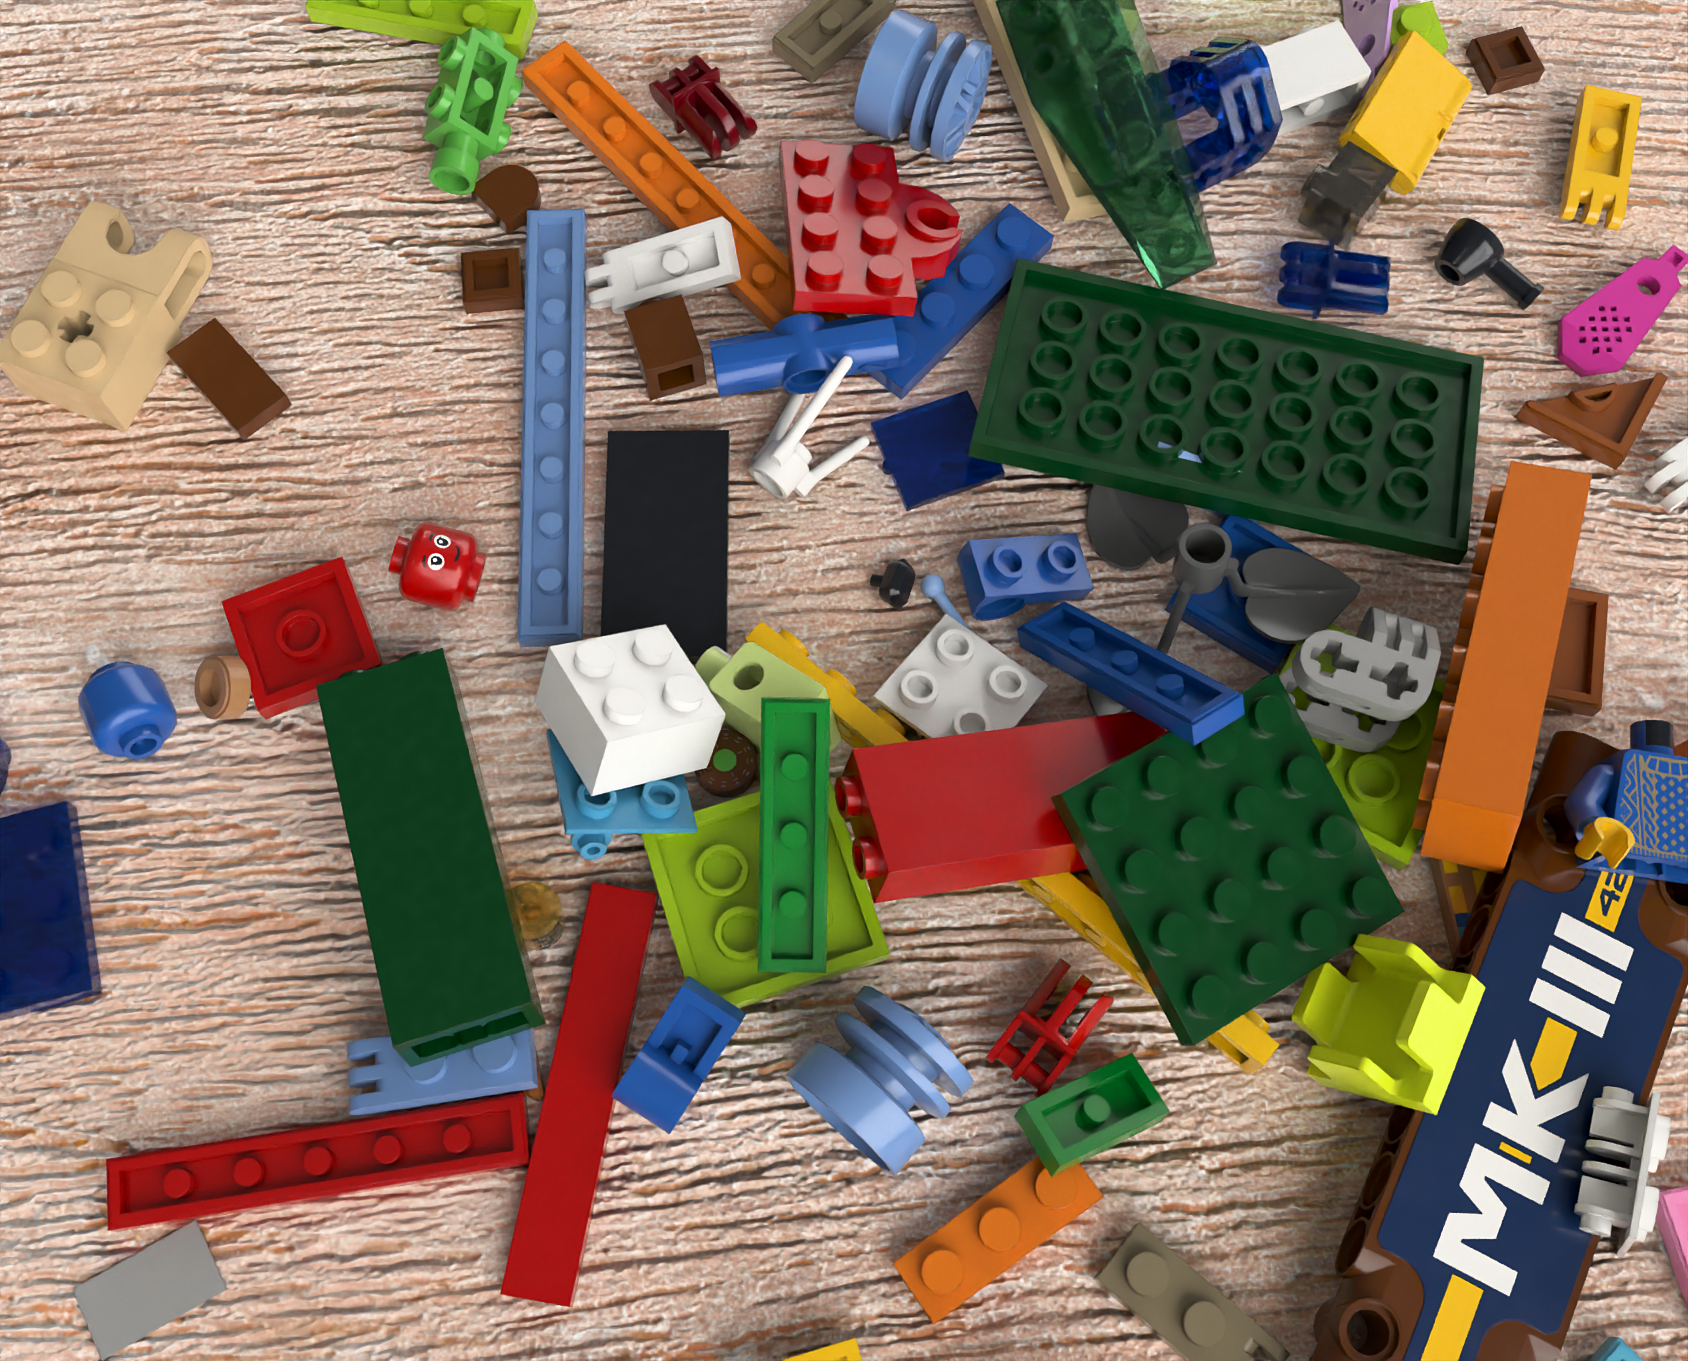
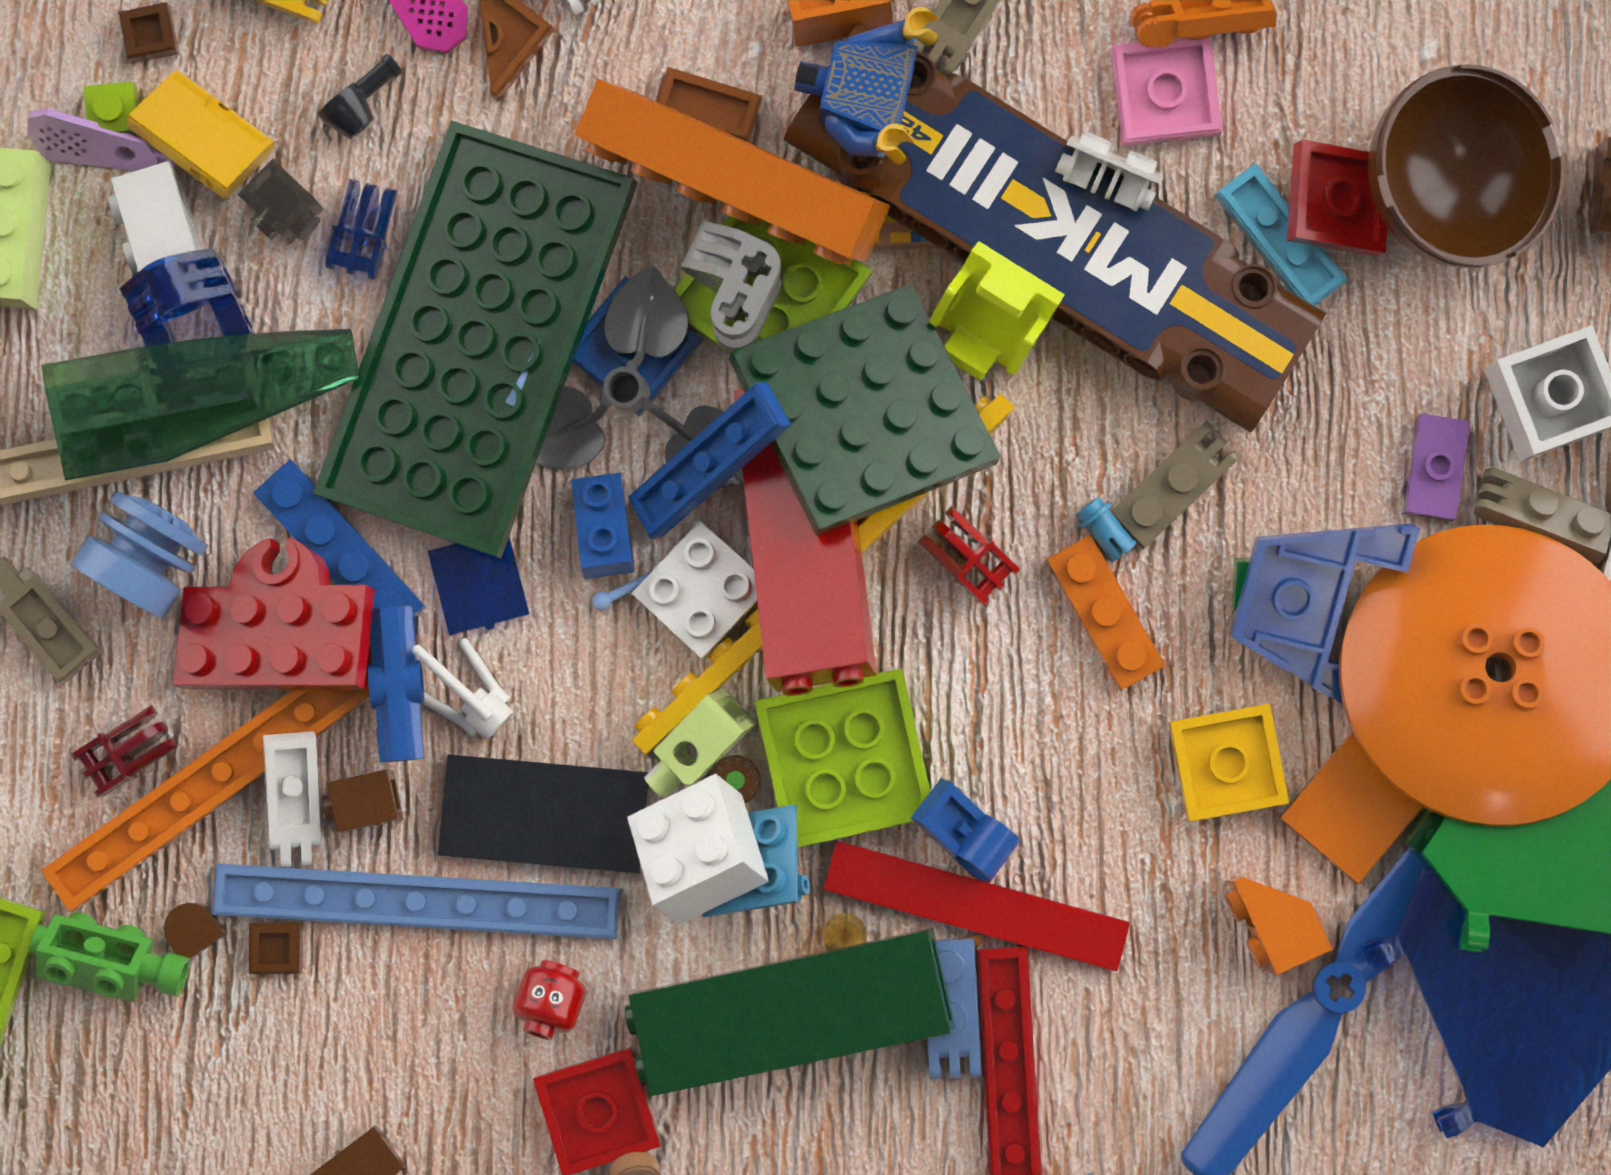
camera: 80 degrees left, 15 degrees up
(793, 834) = (814, 729): green tile -> none
(880, 1078) = (998, 684): medium blue wheel -> none
(895, 583) = (597, 630): black rock -> none
(1091, 1114) = (1033, 534): green plate -> none
(1114, 1217) = (1103, 527): none -> dark azure pin

